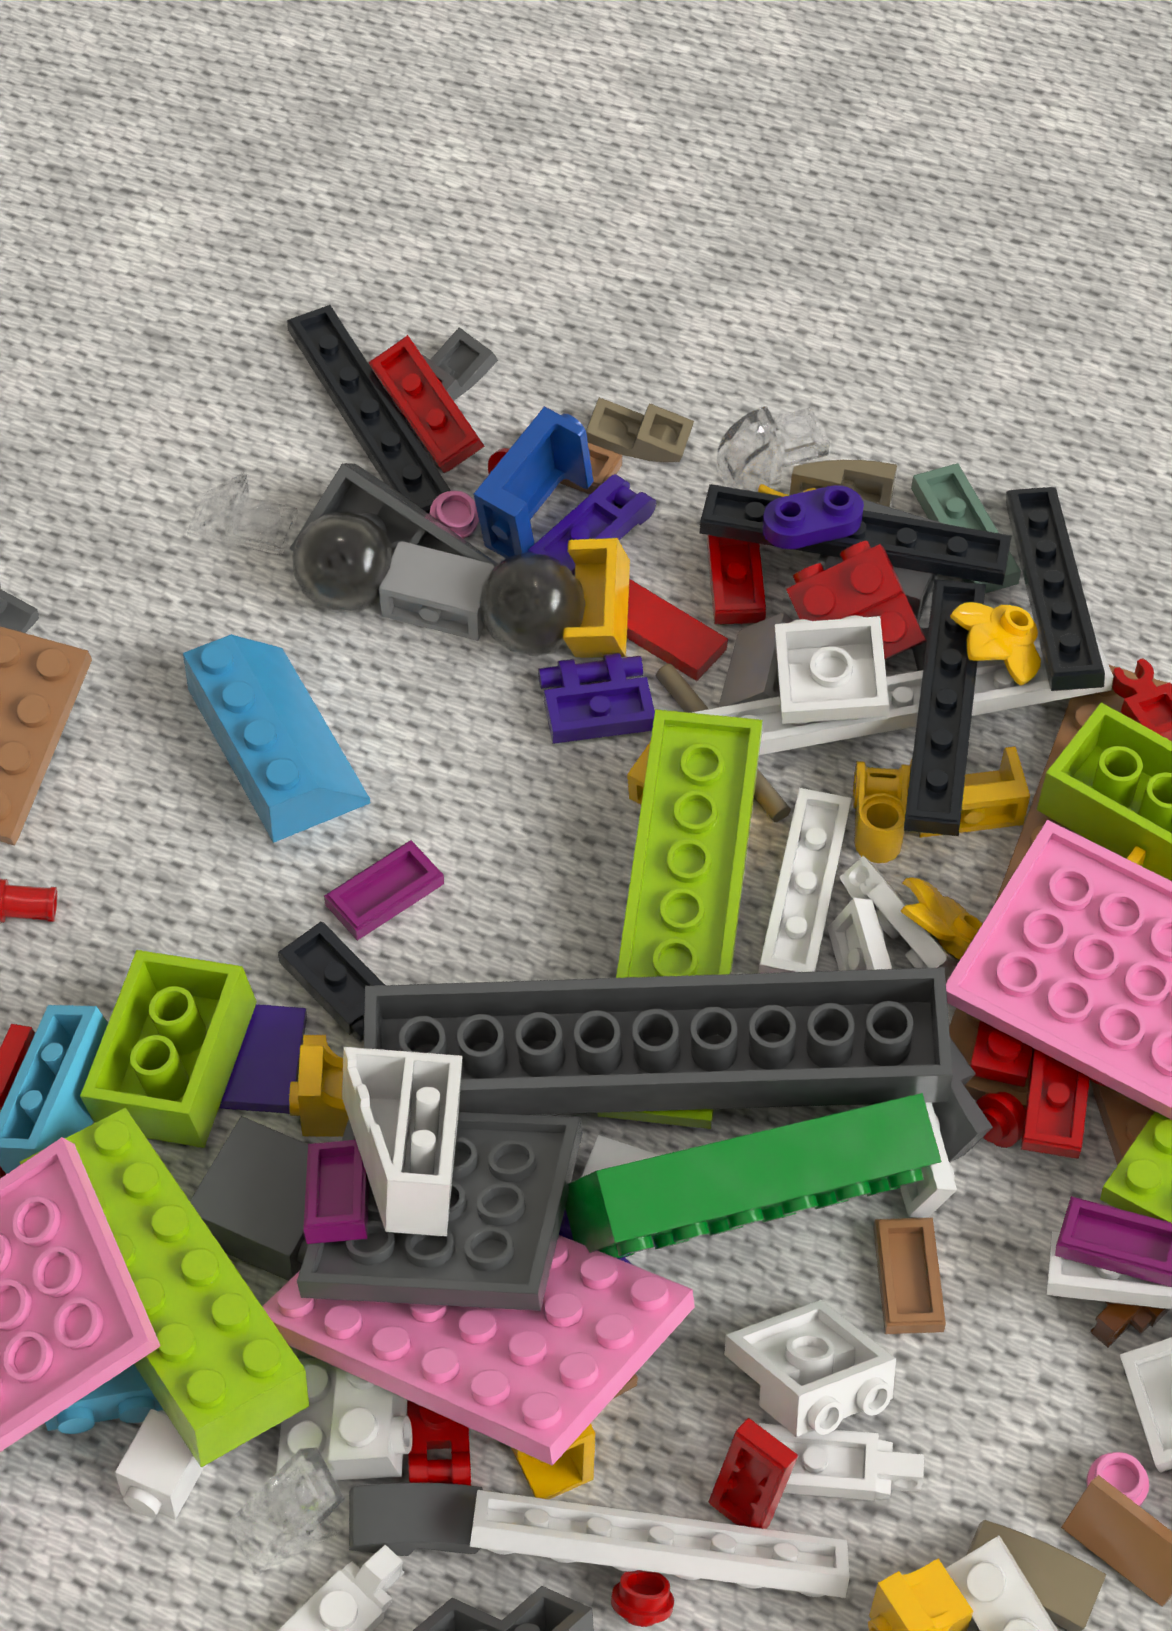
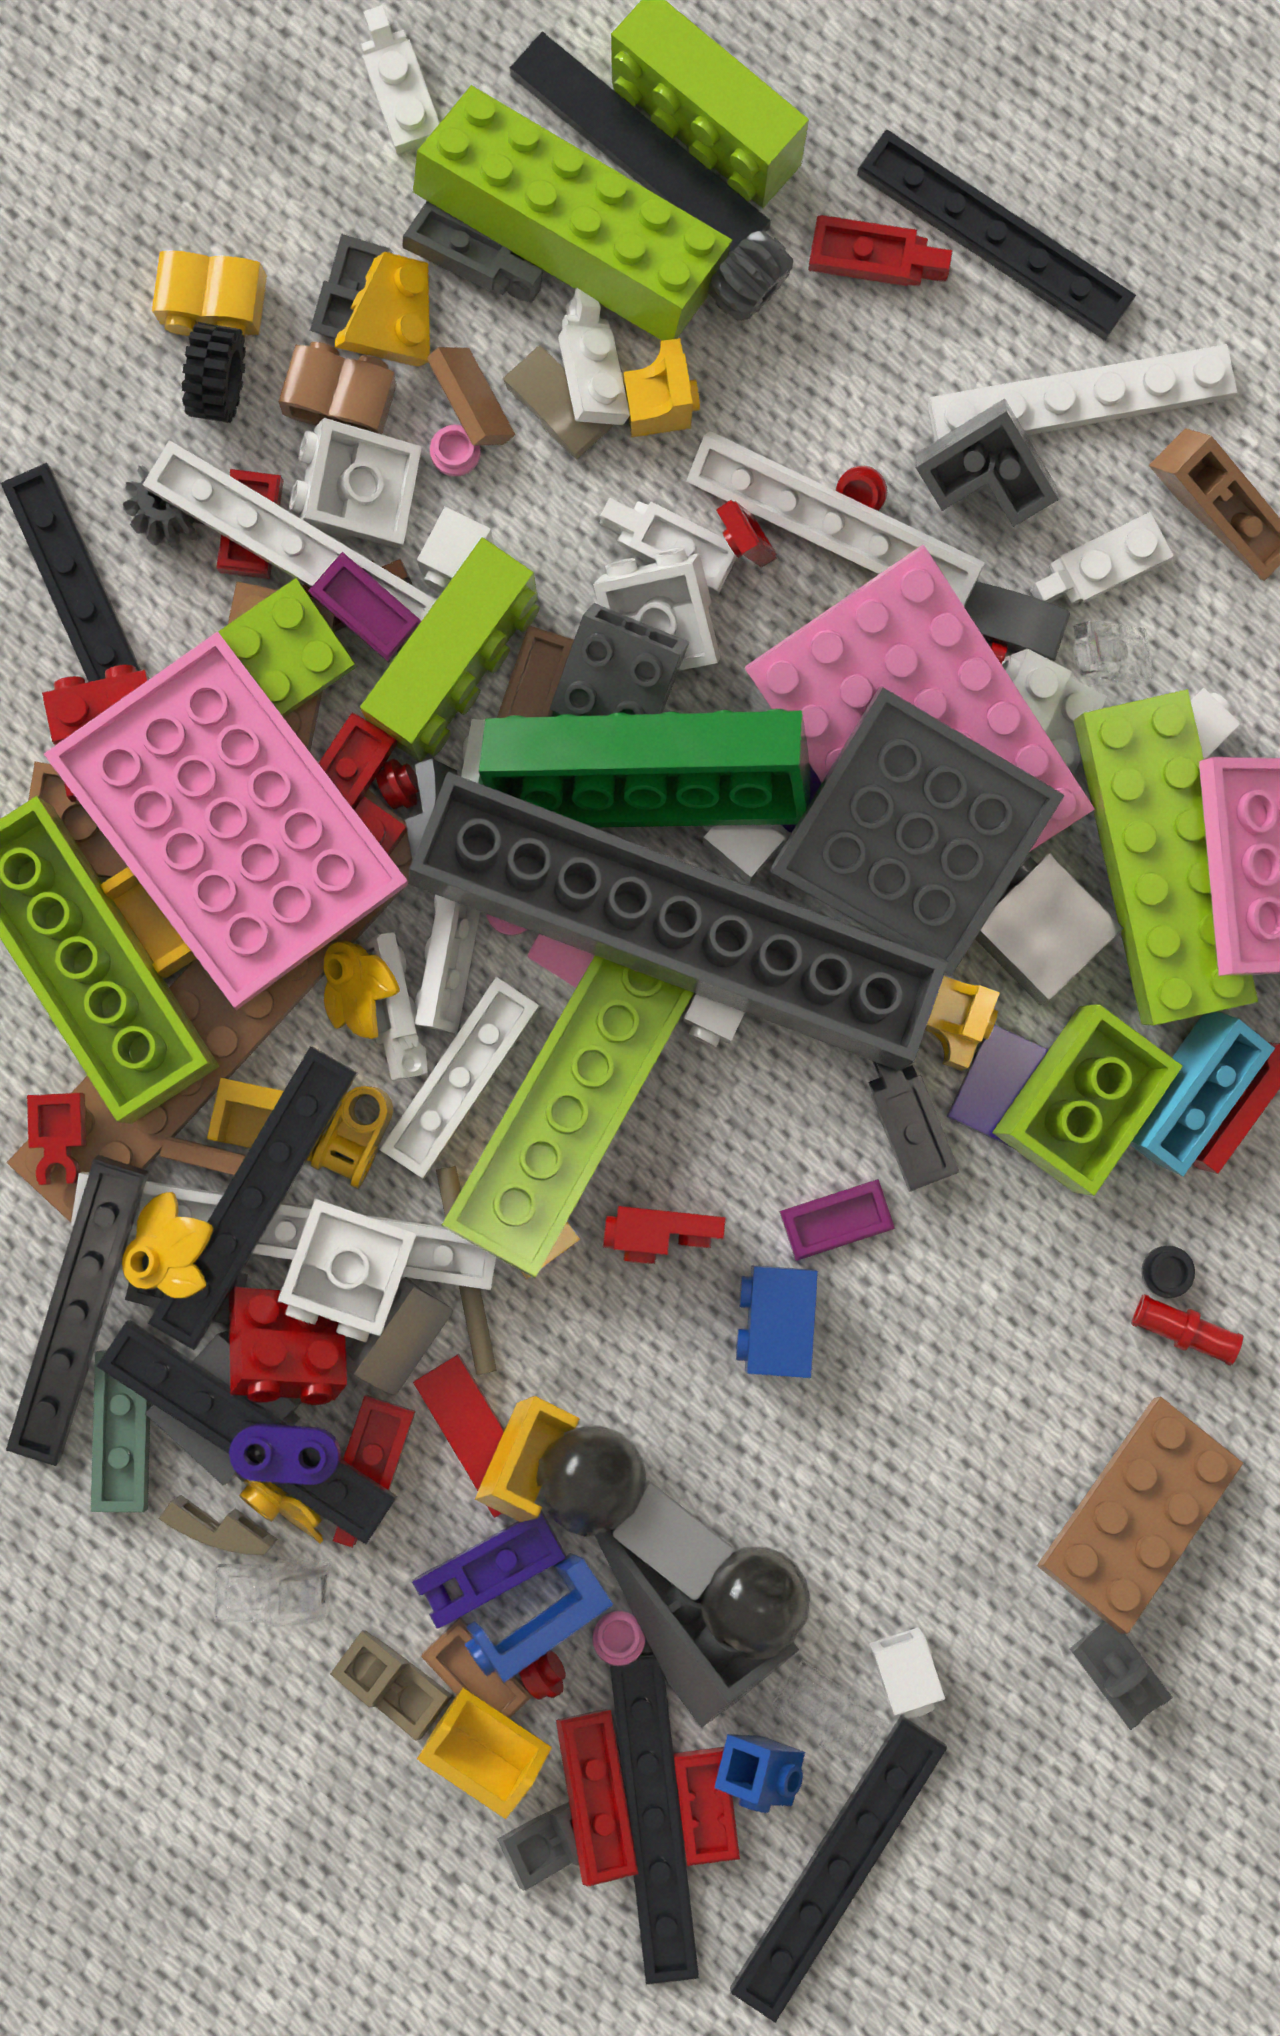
camera: 160 degrees left, 30 degrees up
(33, 945) = (1168, 1271): none -> black plate
(184, 561) = (907, 1673): none -> white brick
(192, 427) = (837, 1868): none -> black tile
(272, 735) = (883, 1427): dark azure slope -> none
(291, 451) = (760, 1772): none -> blue brick
(327, 427) = (705, 1811): none -> red plate
(335, 1193) = (1001, 875): magenta tile -> none
(406, 1132) = (933, 882): white wedge -> none
(409, 777) = (779, 1321): none -> blue brick
(519, 393) = (484, 1753): none -> yellow panel
(554, 808) = (647, 1231): none -> red plate
(596, 709) = (567, 1344): dark purple plate -> none
(824, 1285) = (618, 667): none -> dark grey brick
(988, 742) = (201, 1155): none -> medium nougat tile
(1007, 1244) = (453, 651): none -> lime brick
(1061, 1364) = (449, 546): none -> white brick

